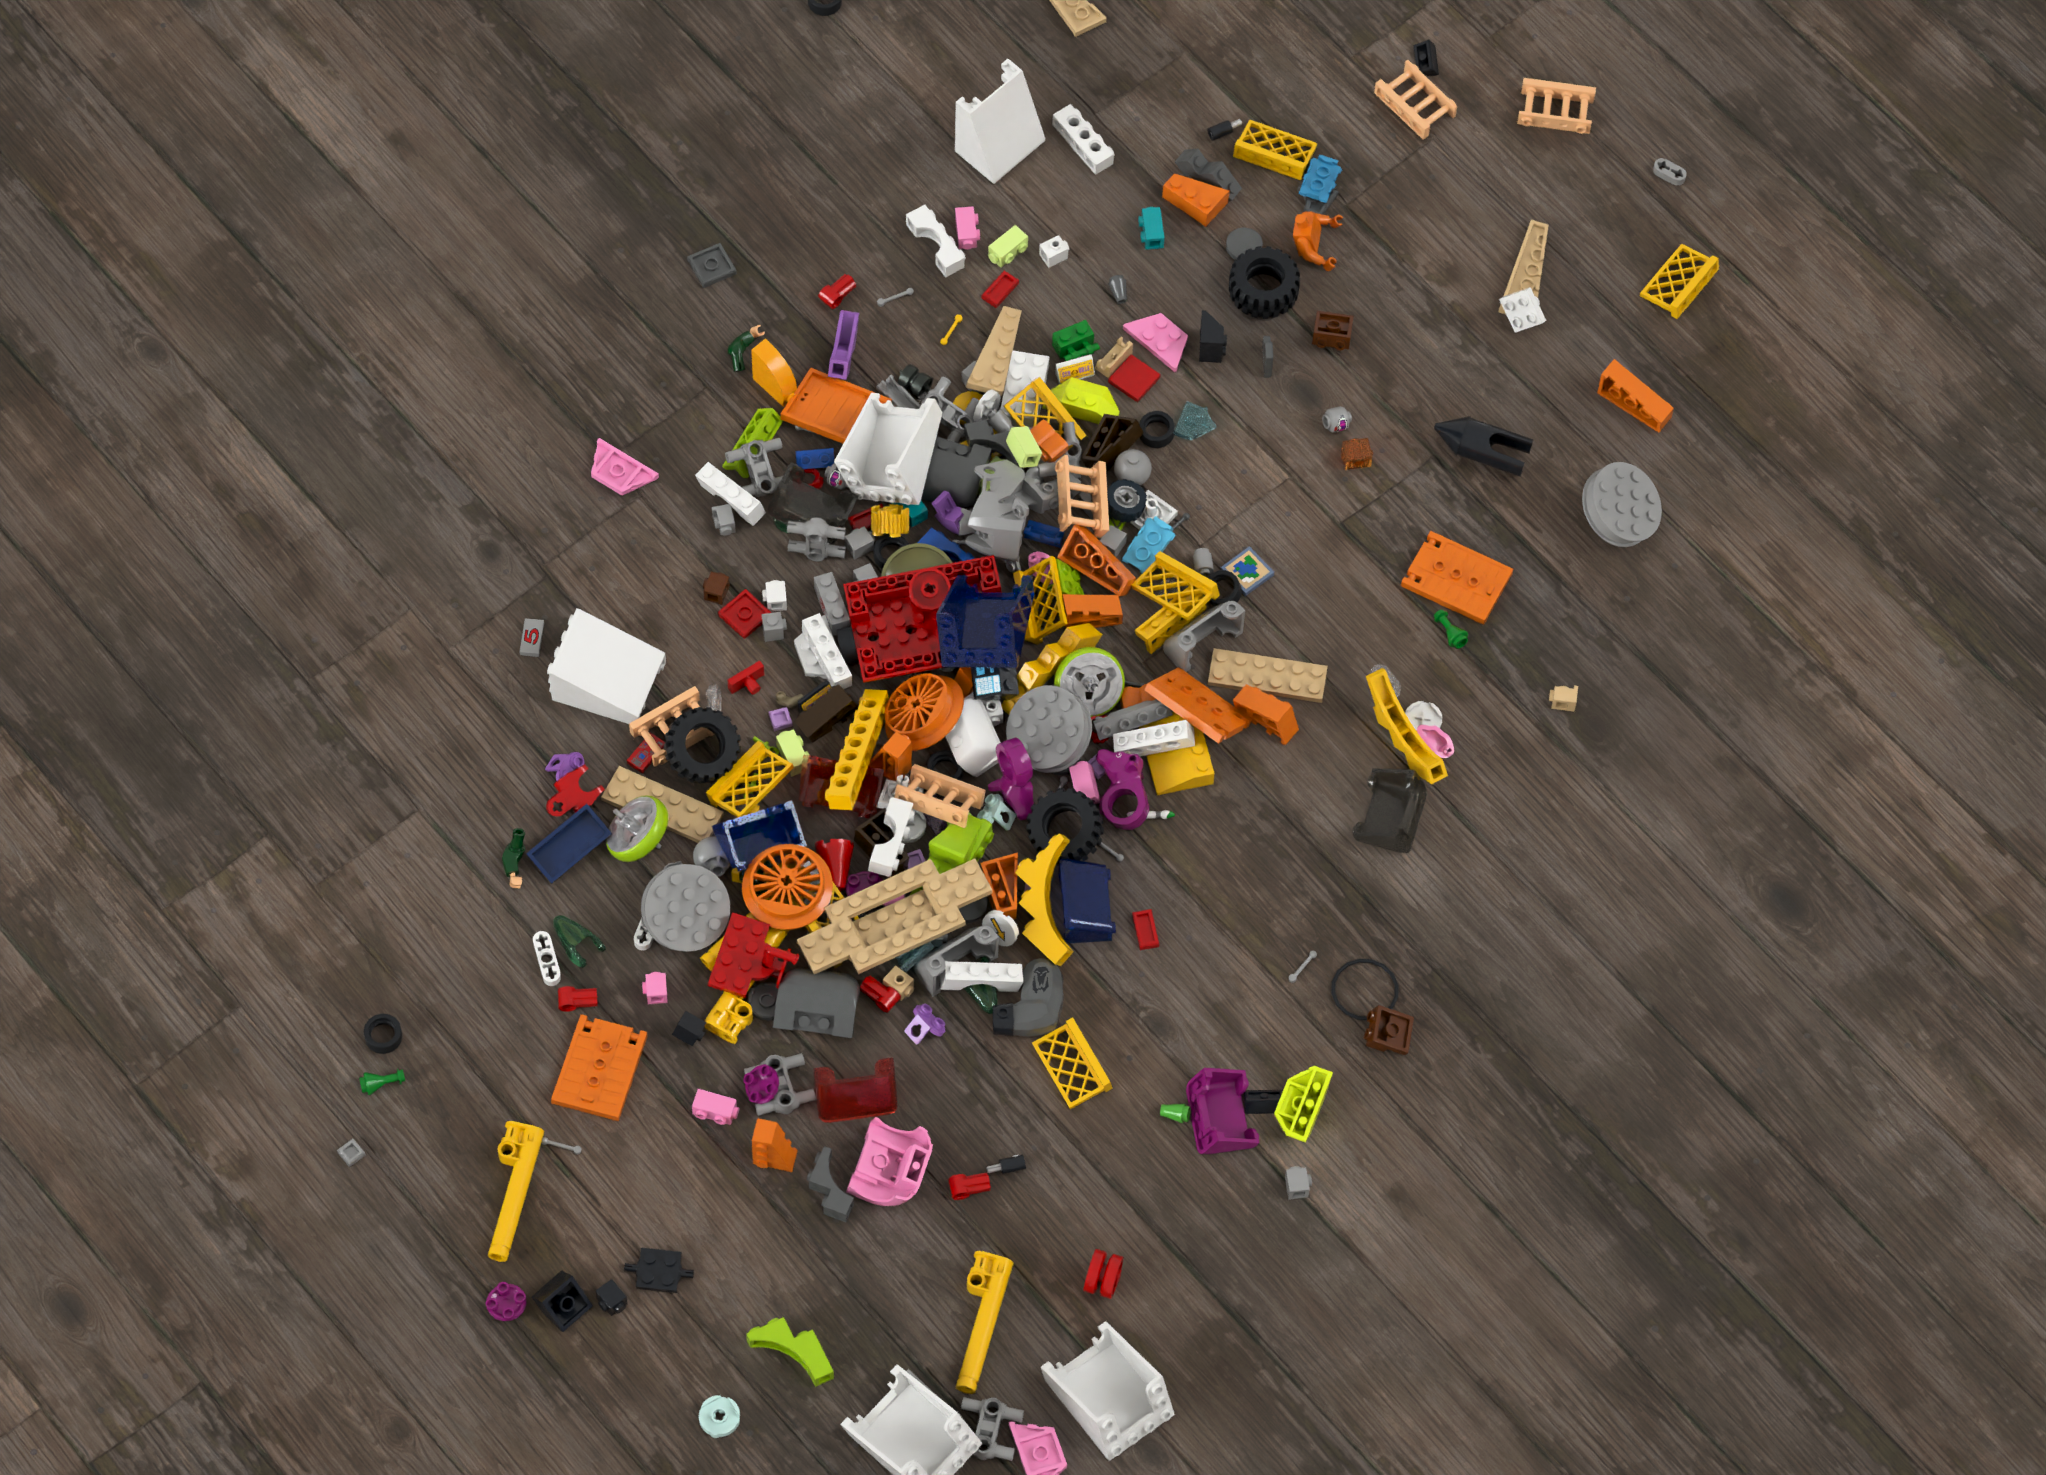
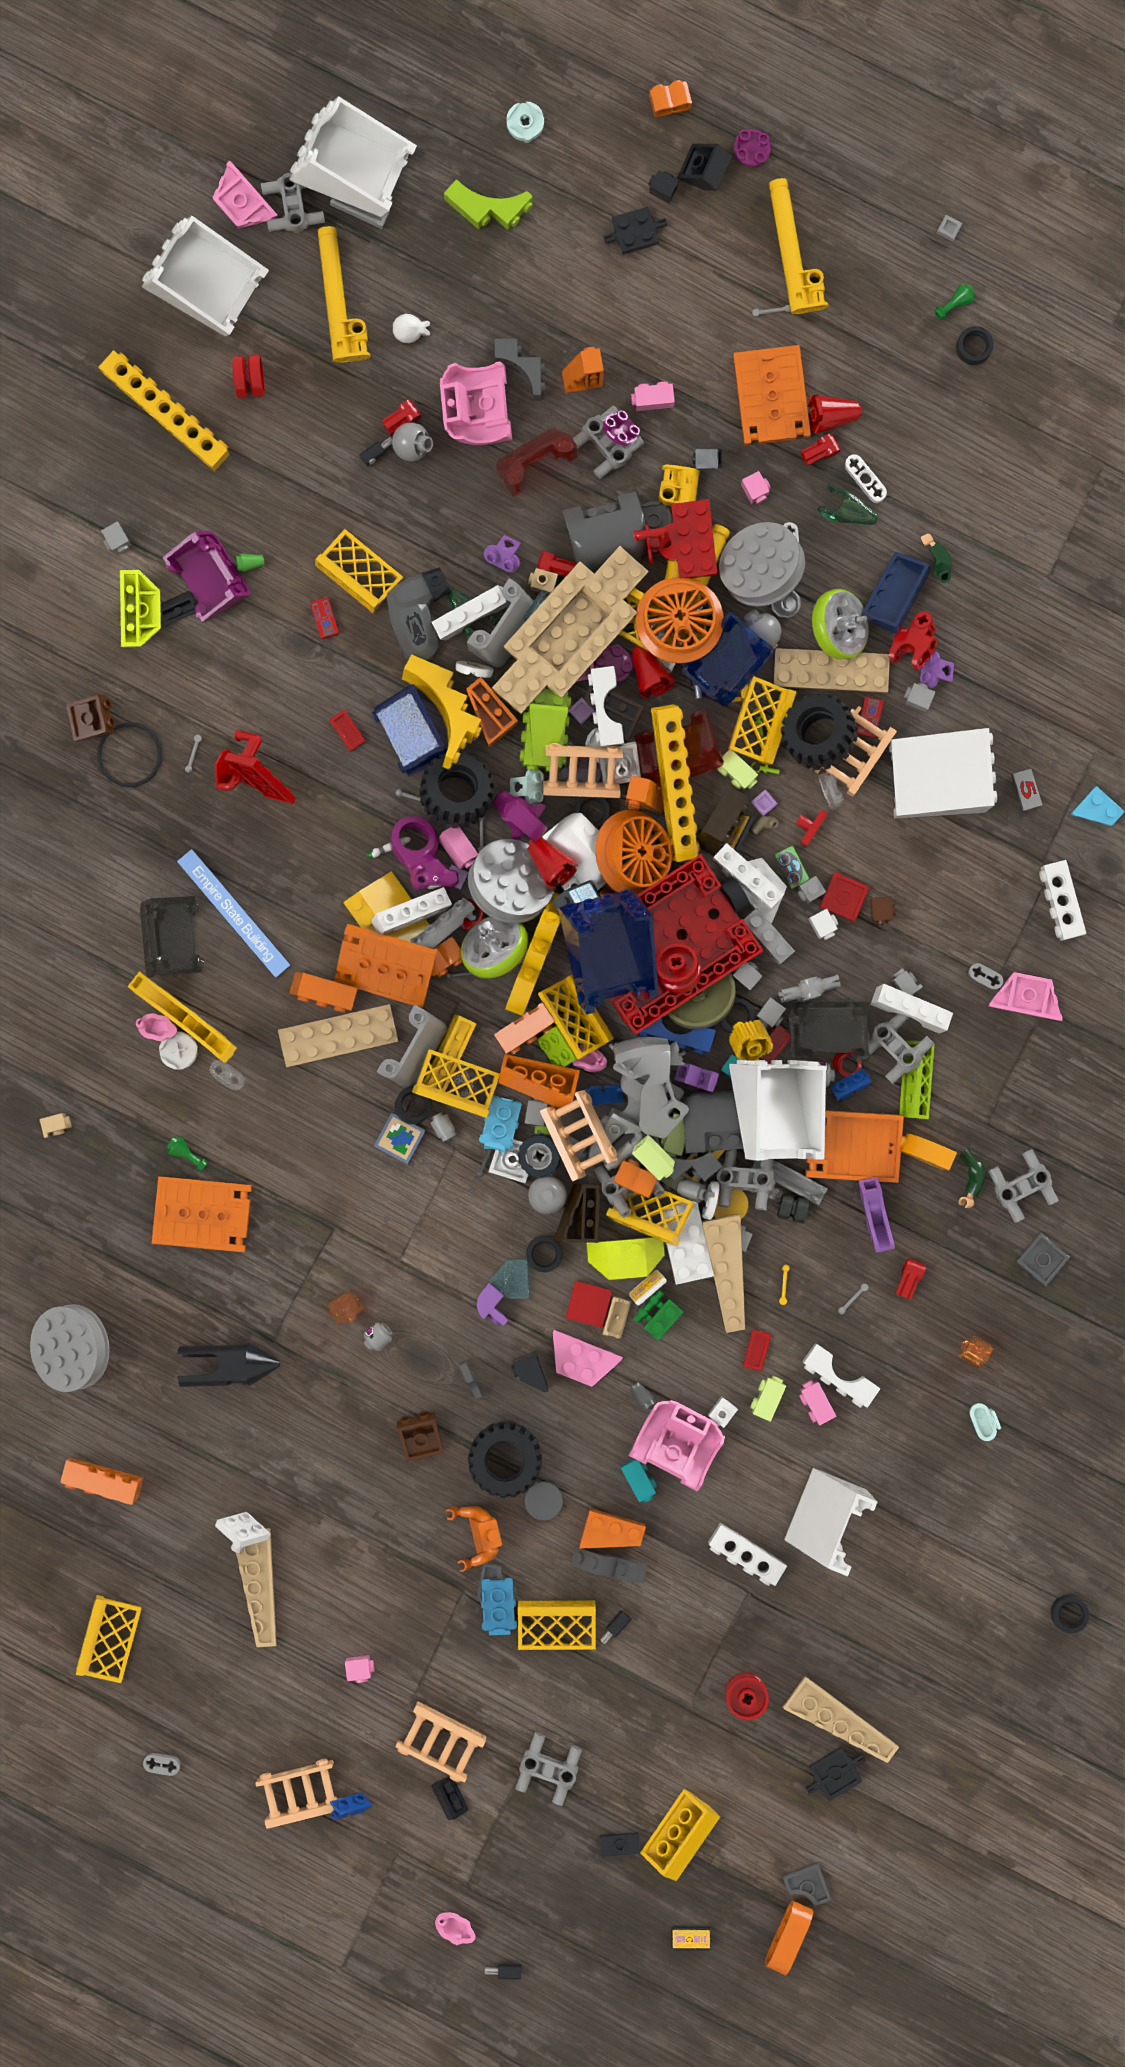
camera: 160 degrees right, 25 degrees up
(475, 598) = (1098, 808): none -> medium azure wing
(548, 507) = (1061, 871): none -> white brick
(551, 1022) = (831, 412): none -> red cone
(564, 1378) = (670, 98): none -> orange brick
(592, 748) = (919, 696): none -> light grey brick
(651, 499) = (987, 972): none -> light grey beam
(700, 324) = (1023, 1185): none -> light grey piece
(781, 655) = (792, 867): none -> slope
(808, 212) = (975, 1351): none -> clear orange head
(826, 161) = (984, 1421): none -> light aqua bracket
(924, 1265) = (409, 328): none -> white piece
(969, 1152) = (411, 442): none -> light grey brick
(1003, 720) = (551, 863): none -> red cone
(1105, 238) = (678, 1442): none -> bright pink piece
(1124, 1036) = (324, 618): none -> red tile
(1133, 36) = (750, 1707): none -> red wheel
(1173, 1220) = (111, 367): none -> yellow brick
(1224, 409) = (486, 1304): none -> medium lavender brick
(1251, 901) = (245, 768): none -> red plate
(1322, 814) = (233, 913): none -> light blue tile
(1330, 47) = (548, 1769): none -> light grey piece
(1464, 178) = (359, 1668): none -> bright pink brick
(1515, 78) = (352, 1804): none -> blue hinge

